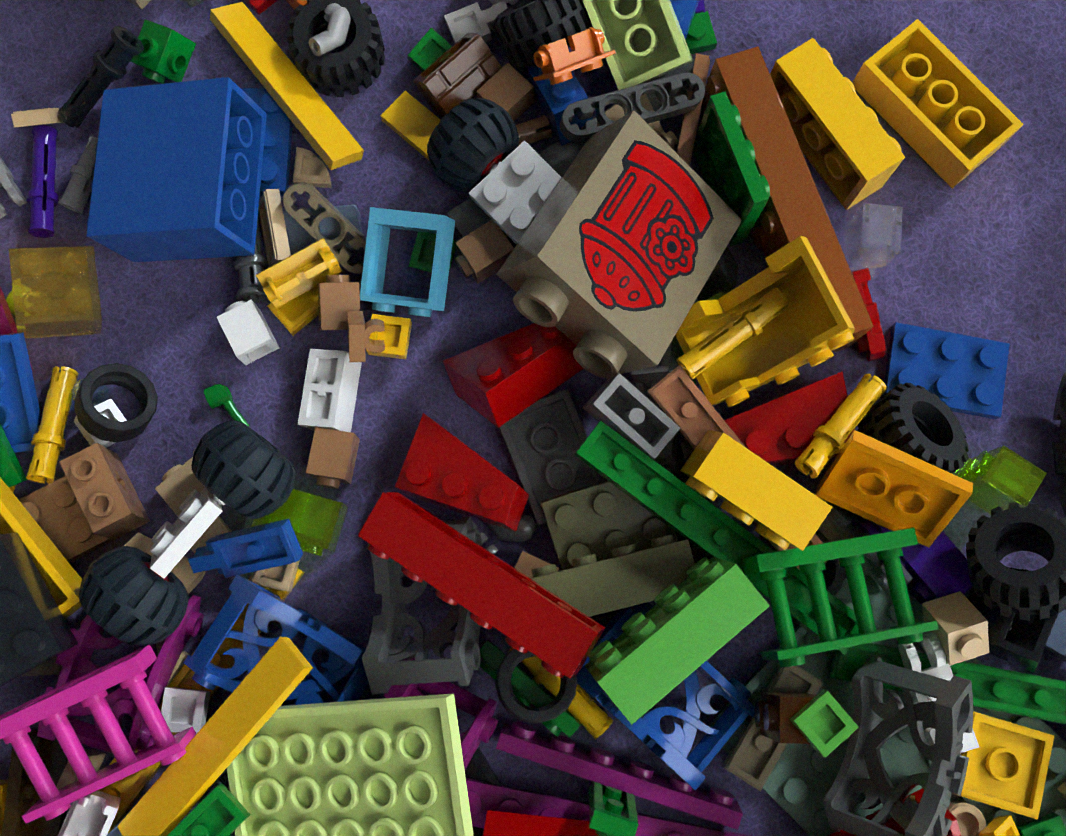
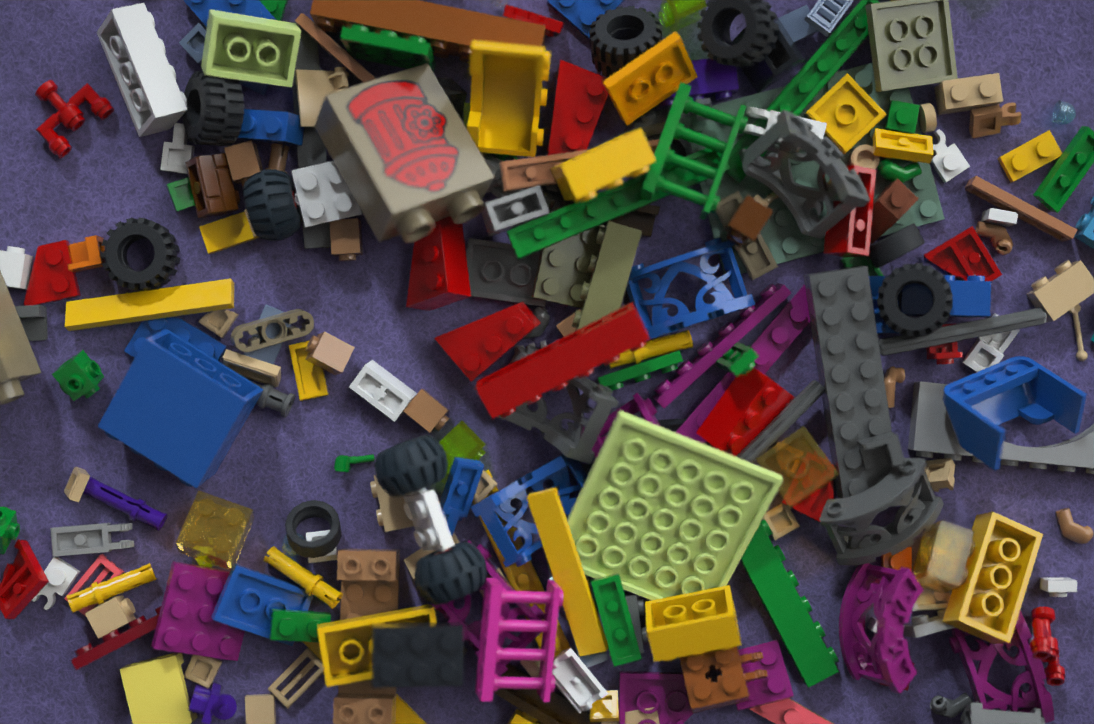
camera: 60 degrees left, 10 degrees up
(79, 185) = (136, 473): light grey pin -> none
(107, 66) = (74, 415): black pin -> none
(185, 708) = (533, 580): white plate -> none
(247, 331) = (311, 421): white brick -> none
(298, 273) = (292, 366): yellow hinge -> none
(336, 33) = (140, 251): light grey arm -> none
(359, 336) = (360, 350): medium nougat tile -> none
(376, 257) = (302, 274): medium azure window -> none
(395, 336) = (368, 332): yellow tile -> none
(423, 252) = (327, 272): green plate -> none
(520, 710) = (651, 380): black tyre -> none
(585, 54) = (254, 118): orange hinge -> none
(630, 100) = (311, 87): dark grey beam -> none
(675, 635) = (660, 264): bright green brick -> none
(745, 324) = (499, 116): yellow pin -> none
(824, 723) = (757, 209): bright green plate -> none
(830, 437) = (597, 95): yellow pin -> none
(960, 625) = (753, 91): tan brick -> none

